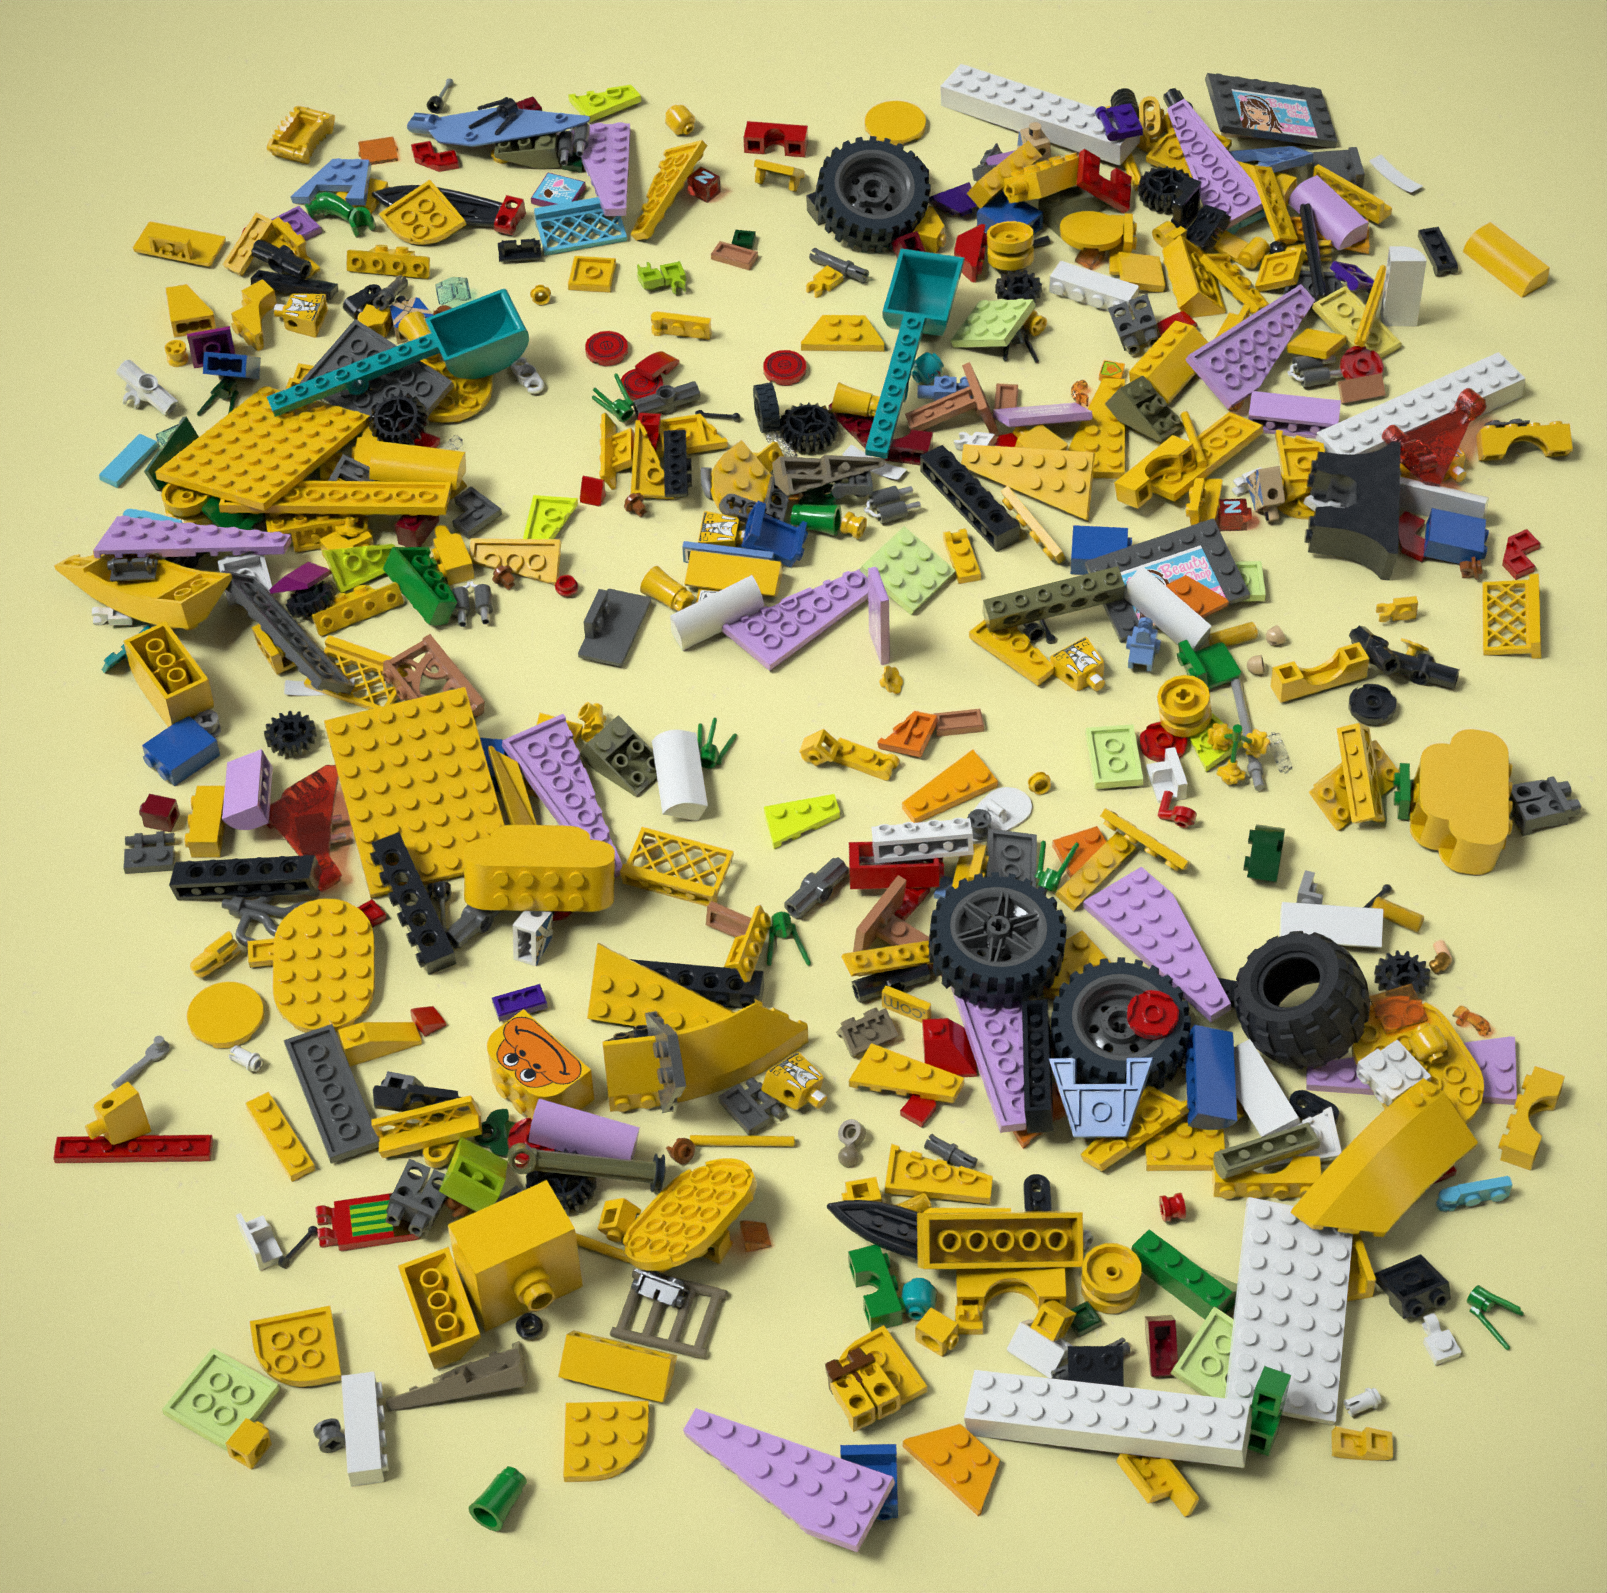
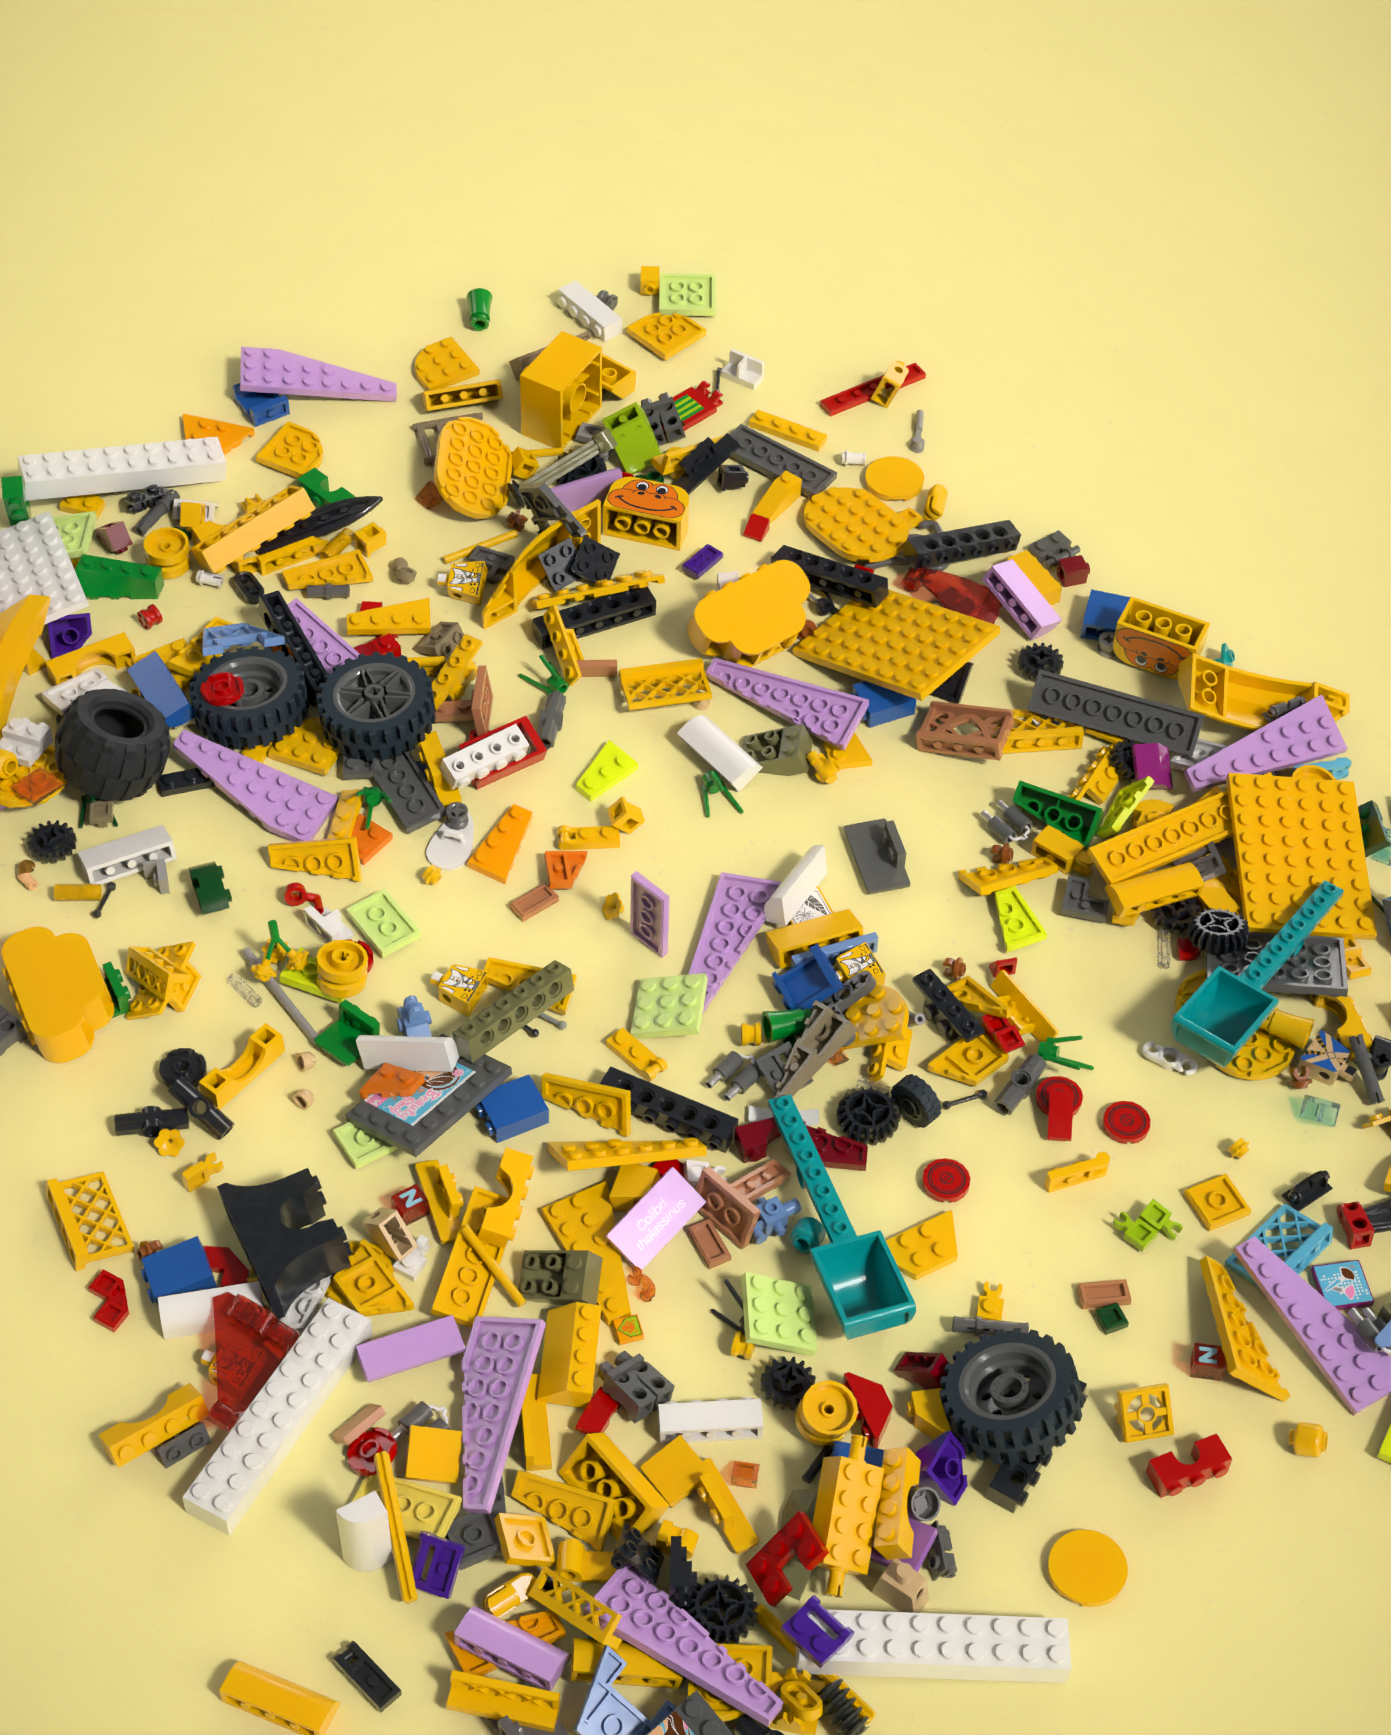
camera: 145 degrees right, 0 degrees up
(512, 789) = (821, 671): yellow wedge -> none
(566, 585) = (947, 872): red plate -> none
(665, 589) = (858, 898): yellow plant -> none
(854, 401) = (840, 1142): yellow plant -> none
(862, 1389) = (293, 427): yellow hips -> none
(937, 1332) = (267, 485): yellow brick -> none
(1091, 230) = (759, 1488): yellow tile -> none
(1237, 629) = (347, 1078): yellow piece -> none
(1265, 1150) = (92, 655): olive brick -> none
(1313, 251) = (498, 1570): black axle -> none

